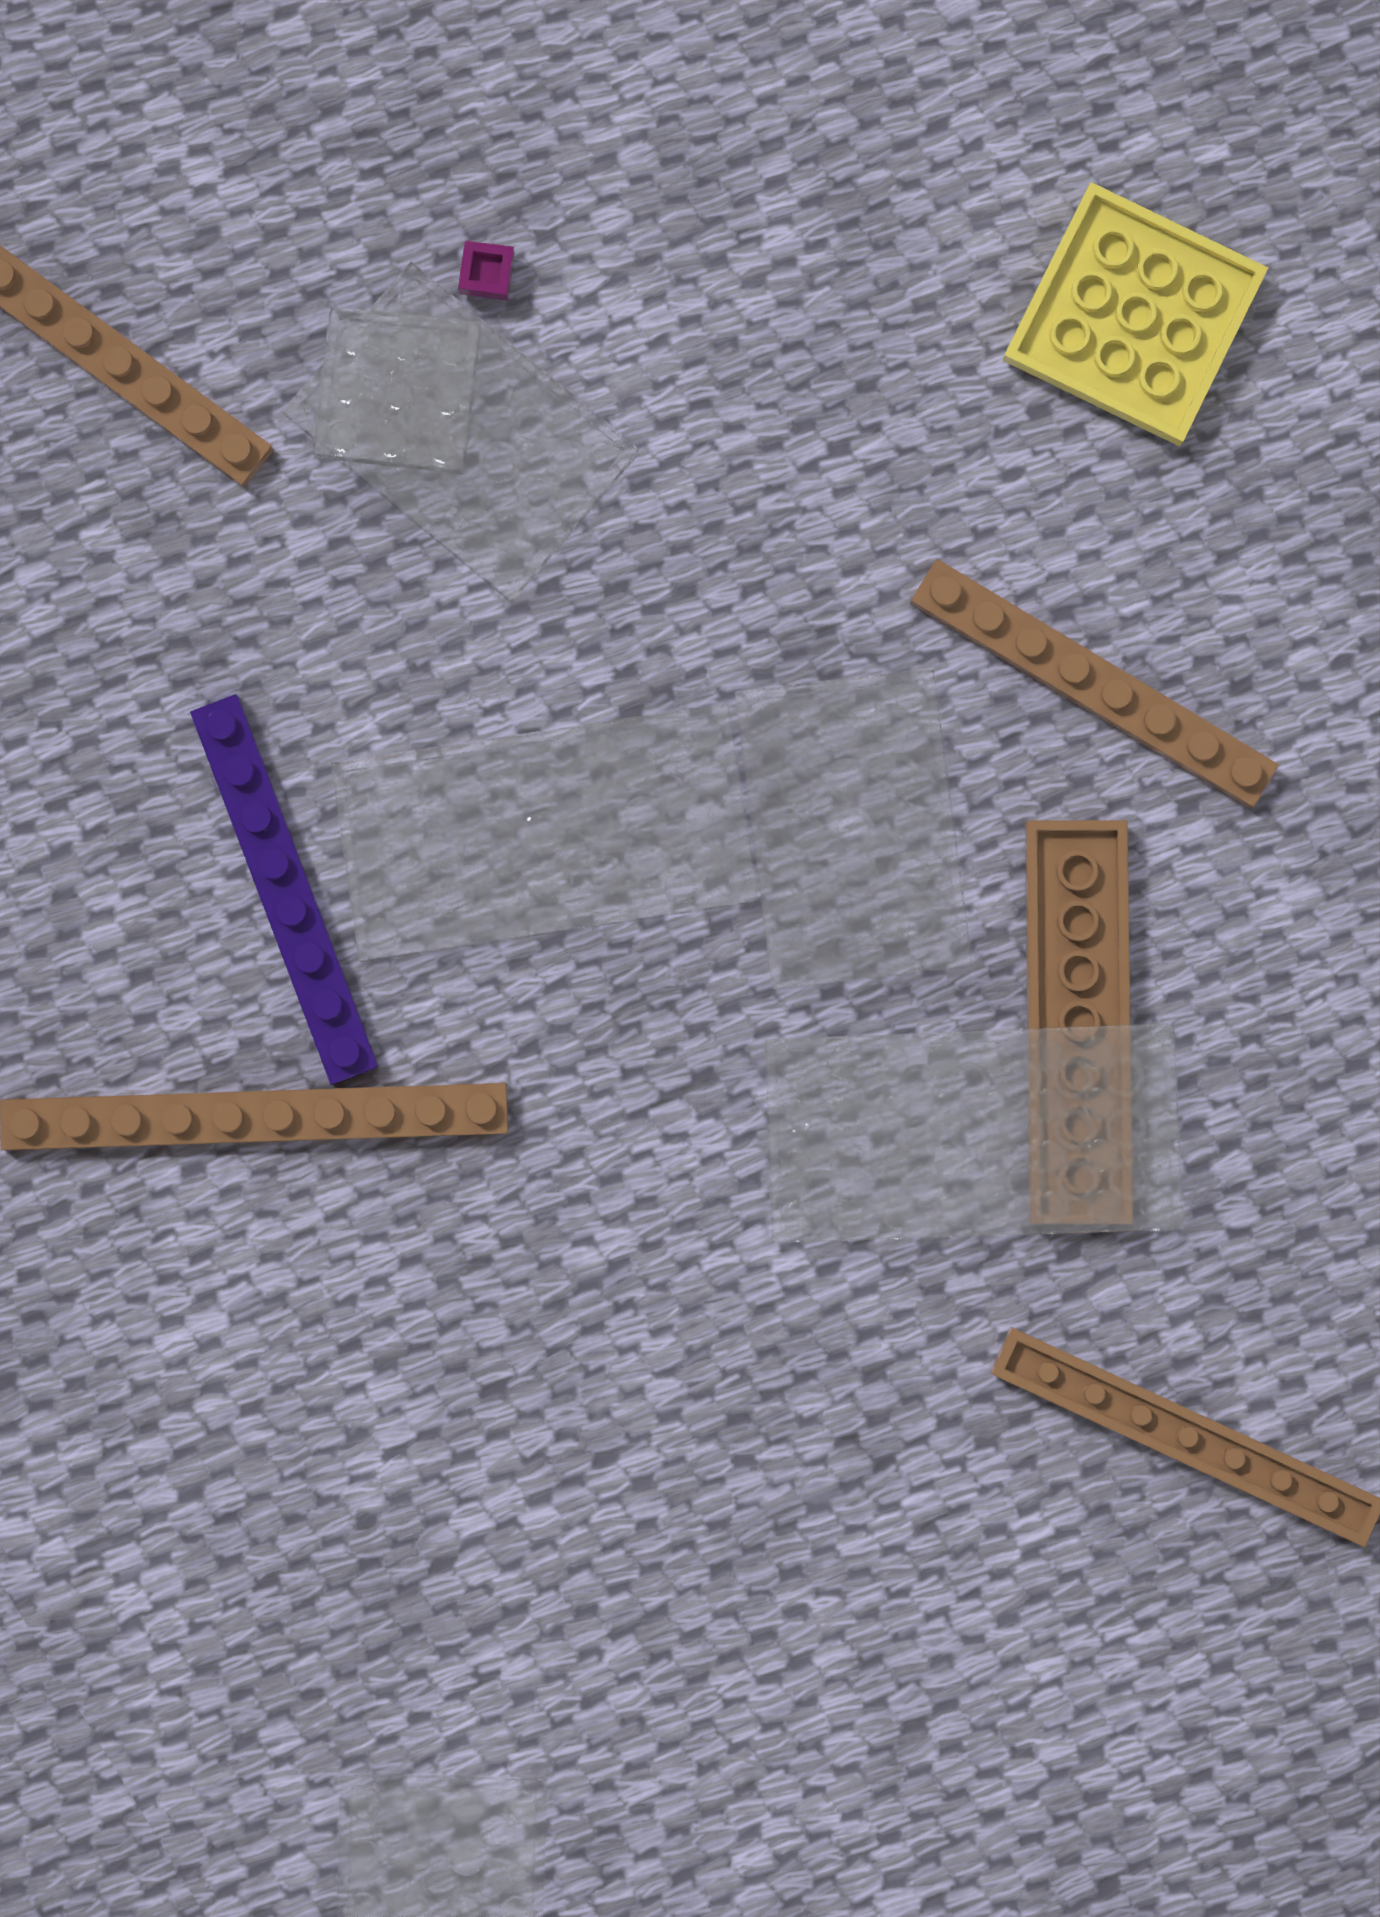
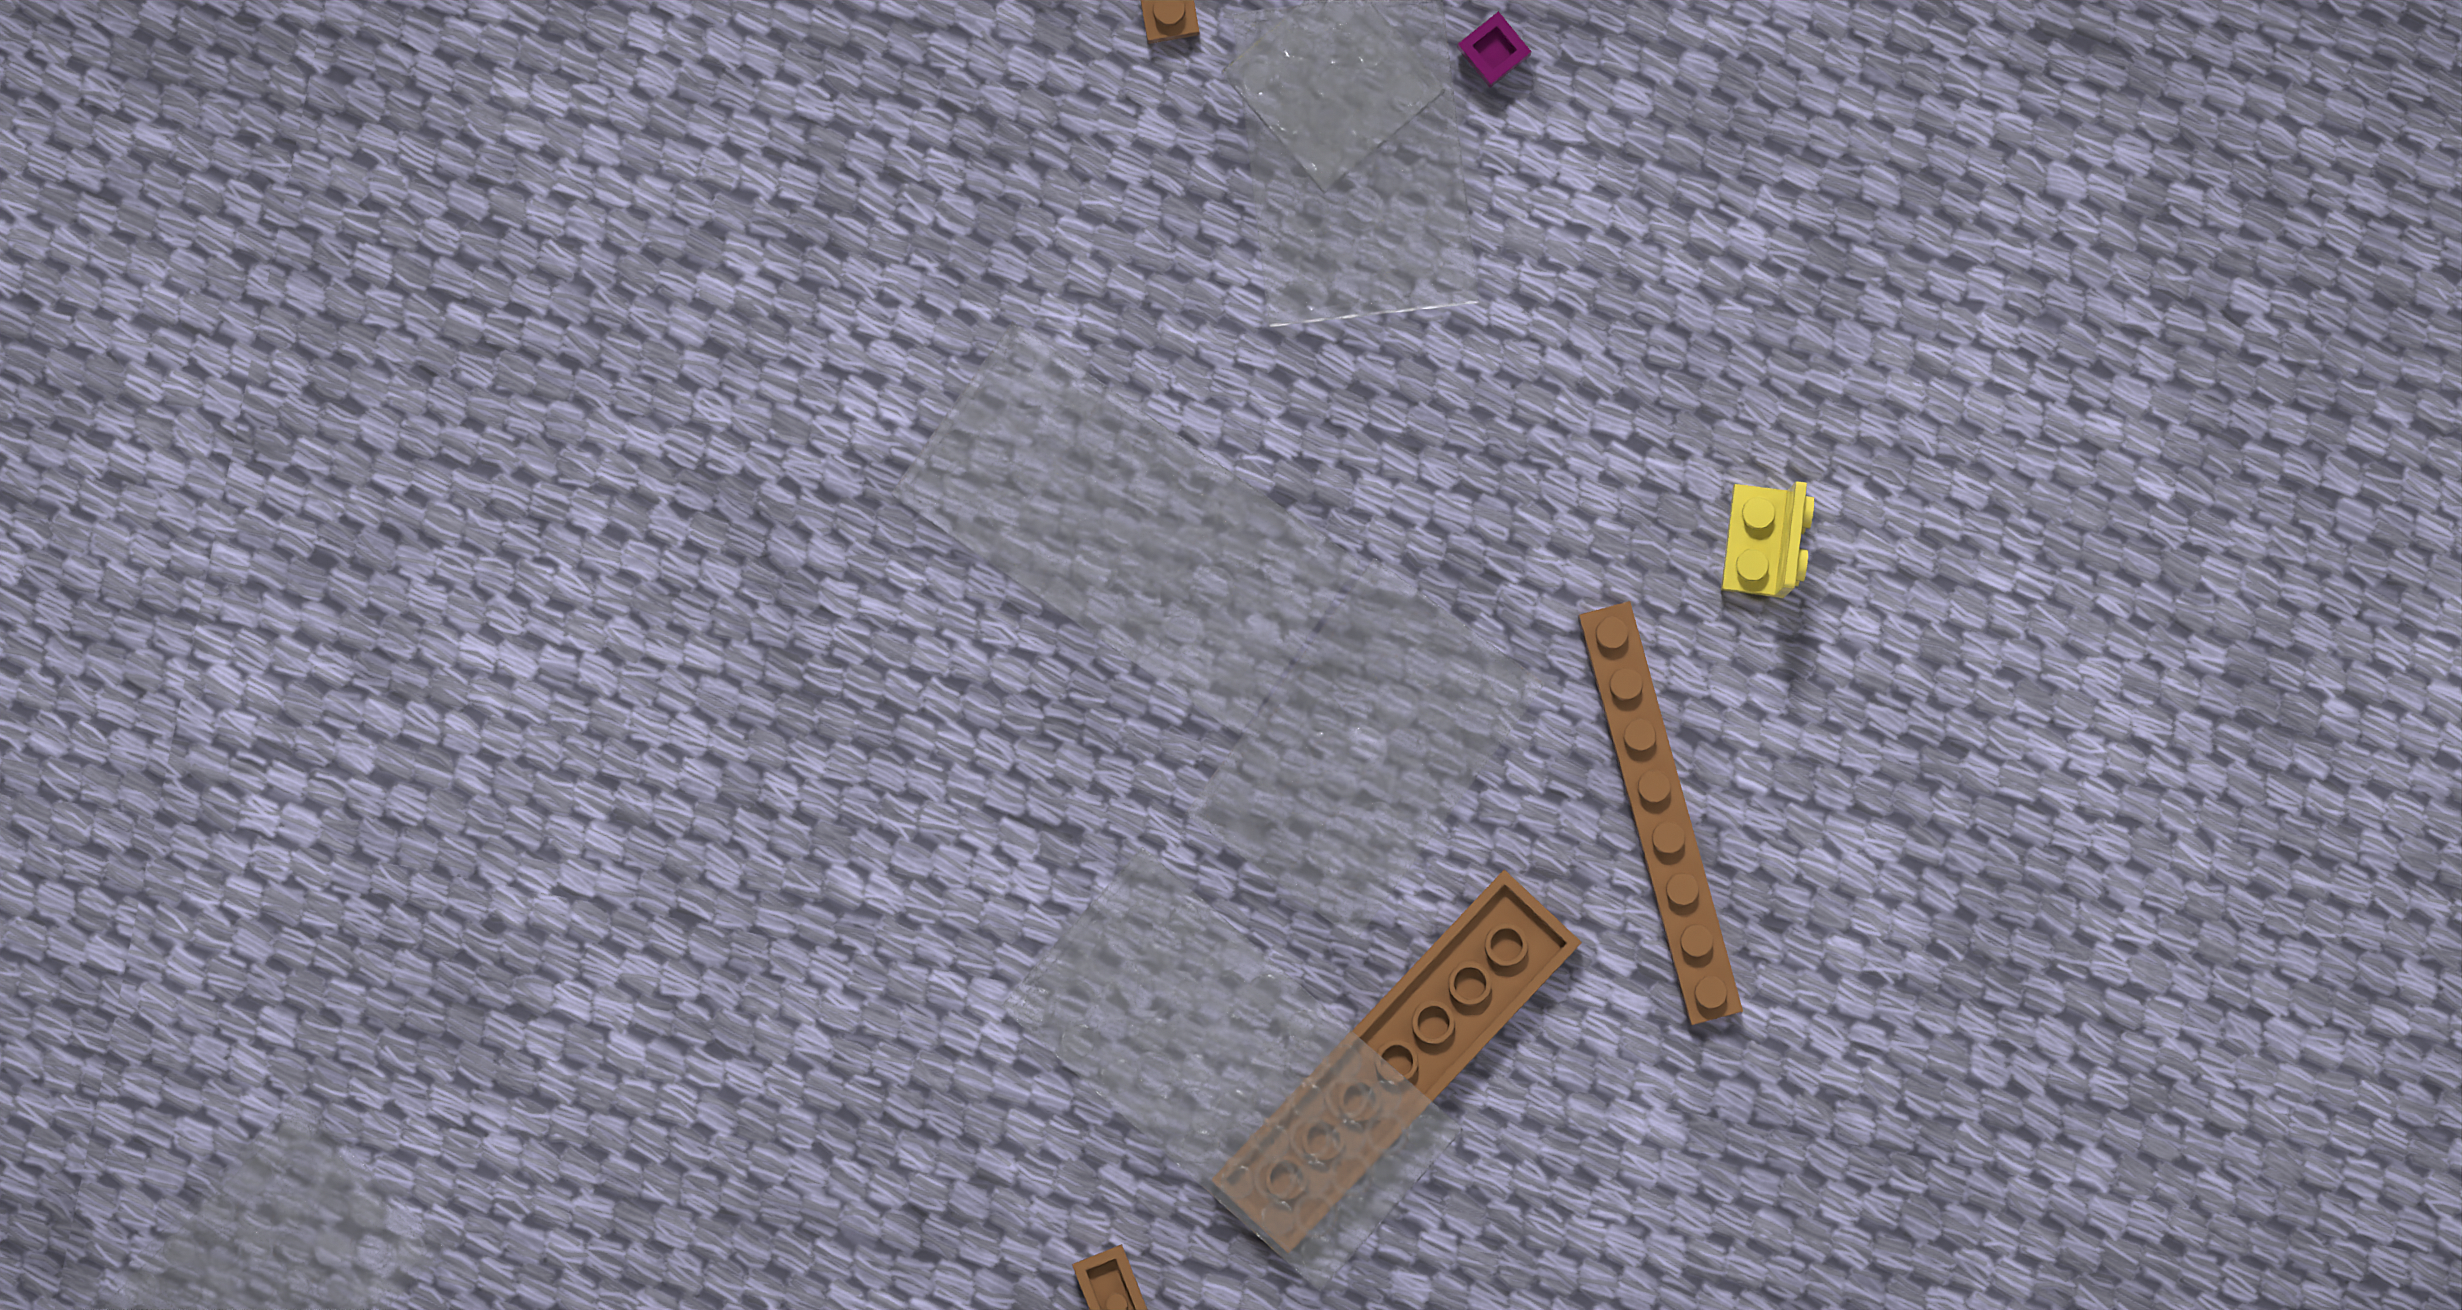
camera: 45 degrees right, 0 degrees up
(254, 1116) = (700, 538): medium nougat plate -> none
(284, 889) = (886, 384): dark purple plate -> none
(992, 427) = (1765, 540): none -> light yellow bracket
(1135, 314) = (1968, 556): light yellow plate -> none

